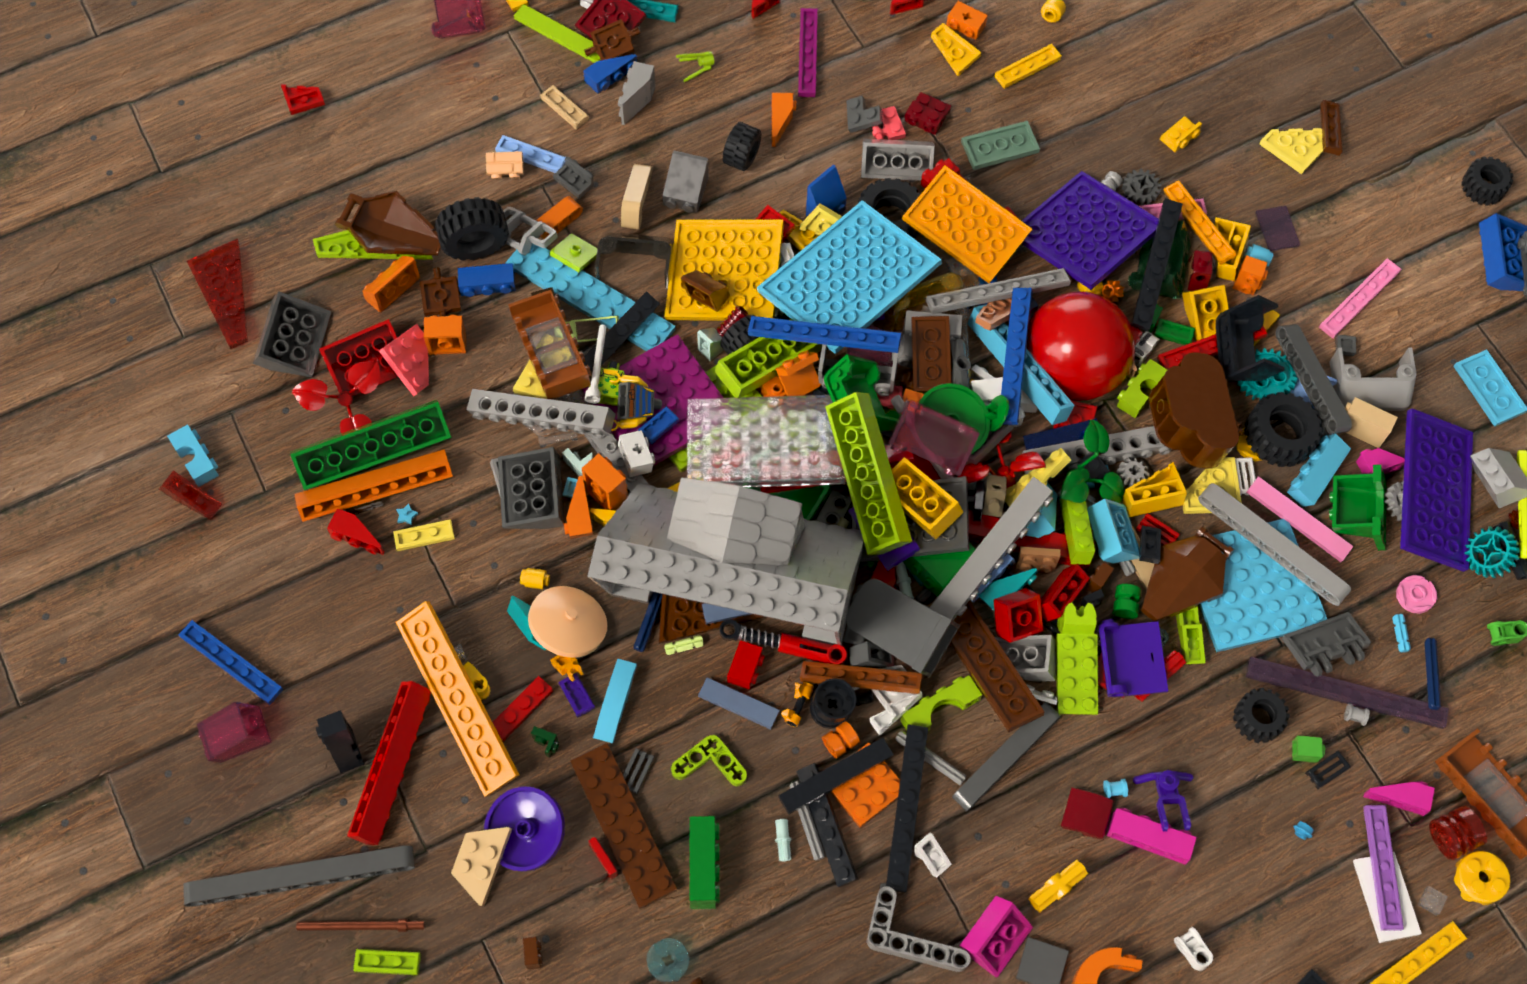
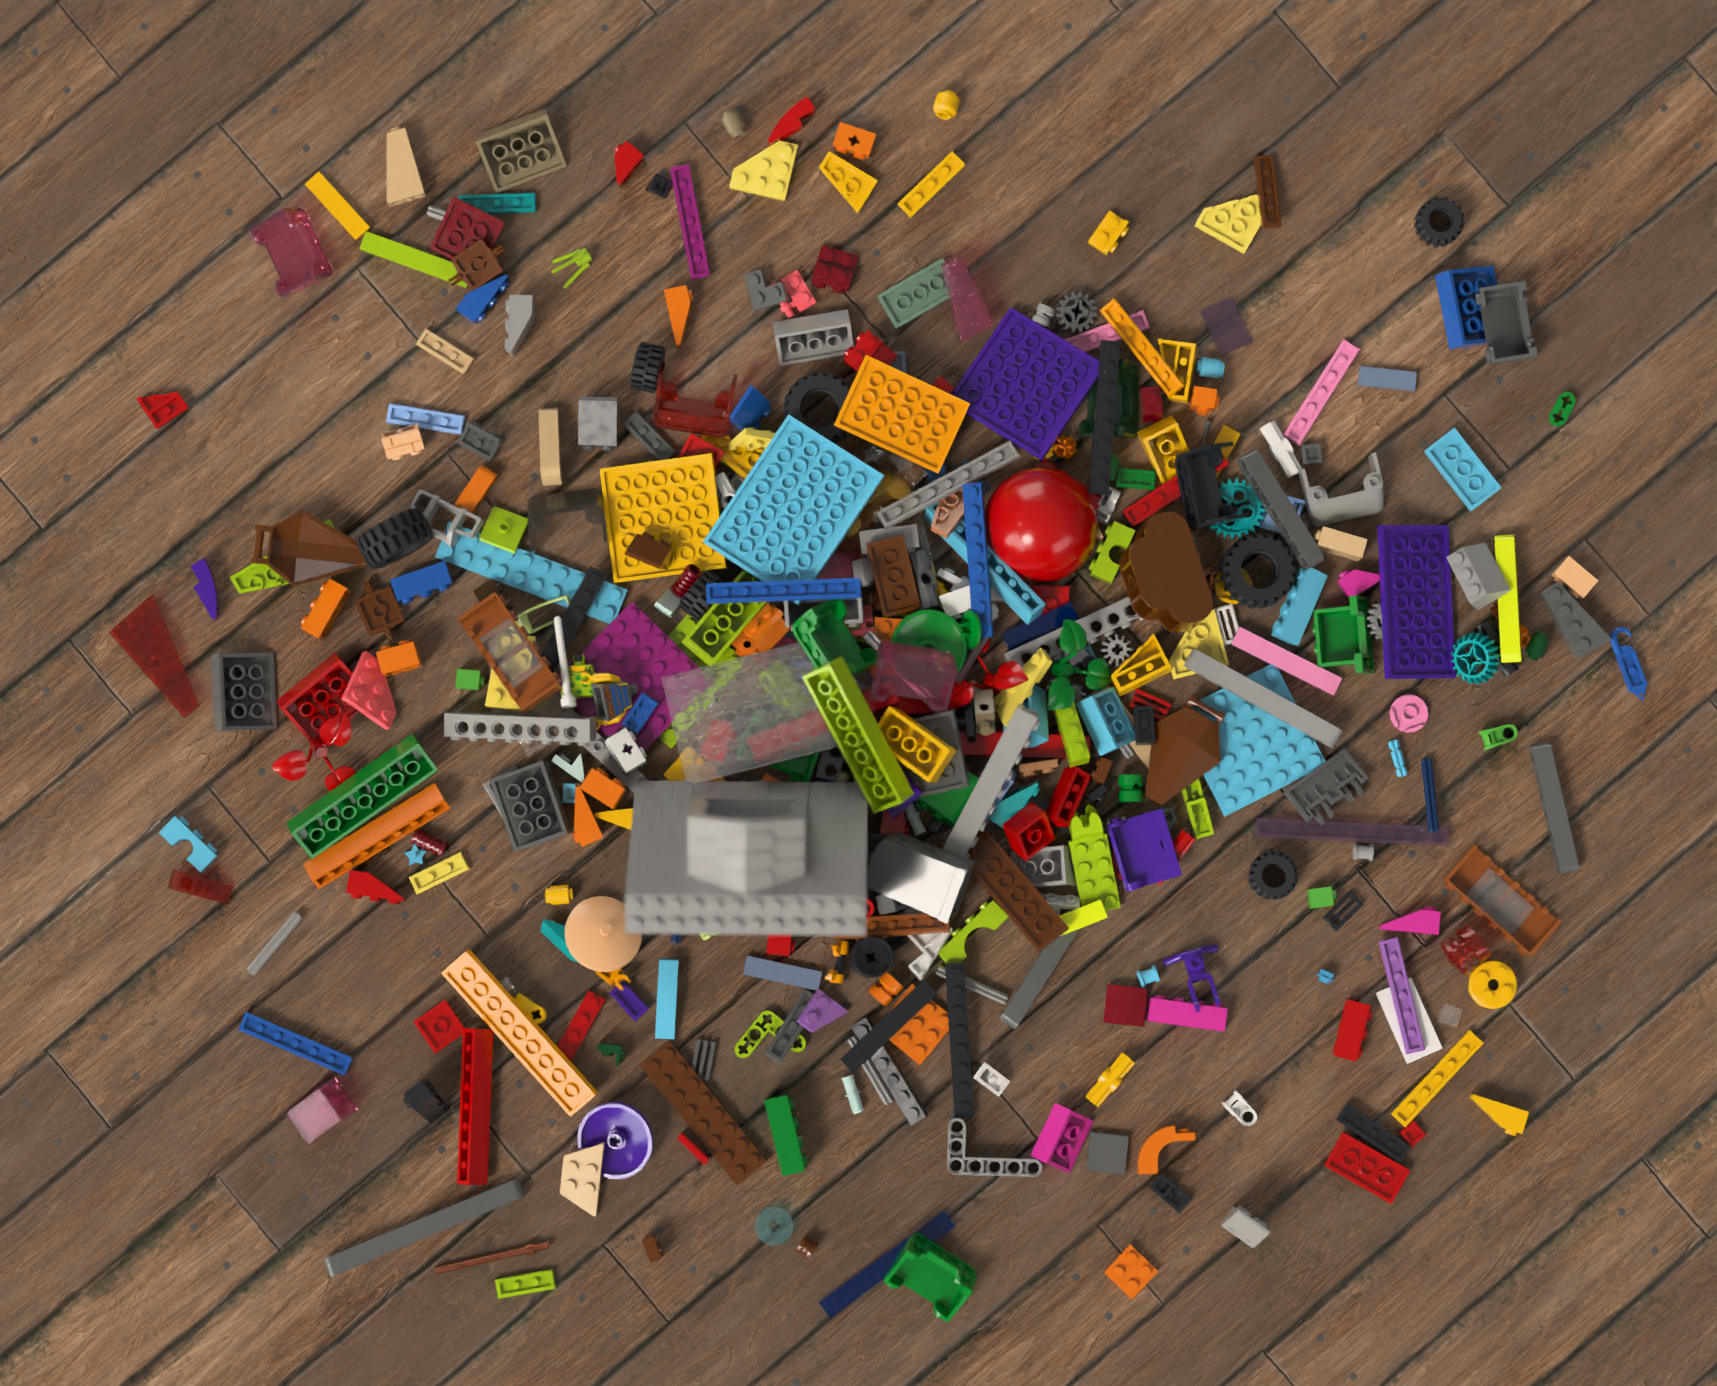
camera: 15 degrees left, 20 degrees up
(243, 564) = (274, 943): none -> light grey axle
(289, 243) = (207, 587): none -> dark purple slope
(379, 677) = (439, 1026): none -> red plate
(422, 504) = (429, 842): none -> dark red piece
(505, 369) = (469, 679): none -> bright green brick
(725, 204) = (649, 437): none -> dark grey tile
(736, 755) = (789, 1029): none -> dark grey tile
(752, 189) = (692, 415): none -> clear red windscreen
(768, 747) = (820, 1012): none -> medium lavender wing
(787, 22) = (659, 186): none -> black slope
(884, 30) = (766, 172): none -> light yellow plate
(1042, 153) = (967, 306): none -> clear pink wedge
(1059, 711) = (1084, 916): none -> neon yellow tile
(1317, 335) = (1280, 449): none -> white piece
(1325, 892) = (1352, 1030): none -> red brick
(1424, 299) = (1387, 378): none -> sand blue tile

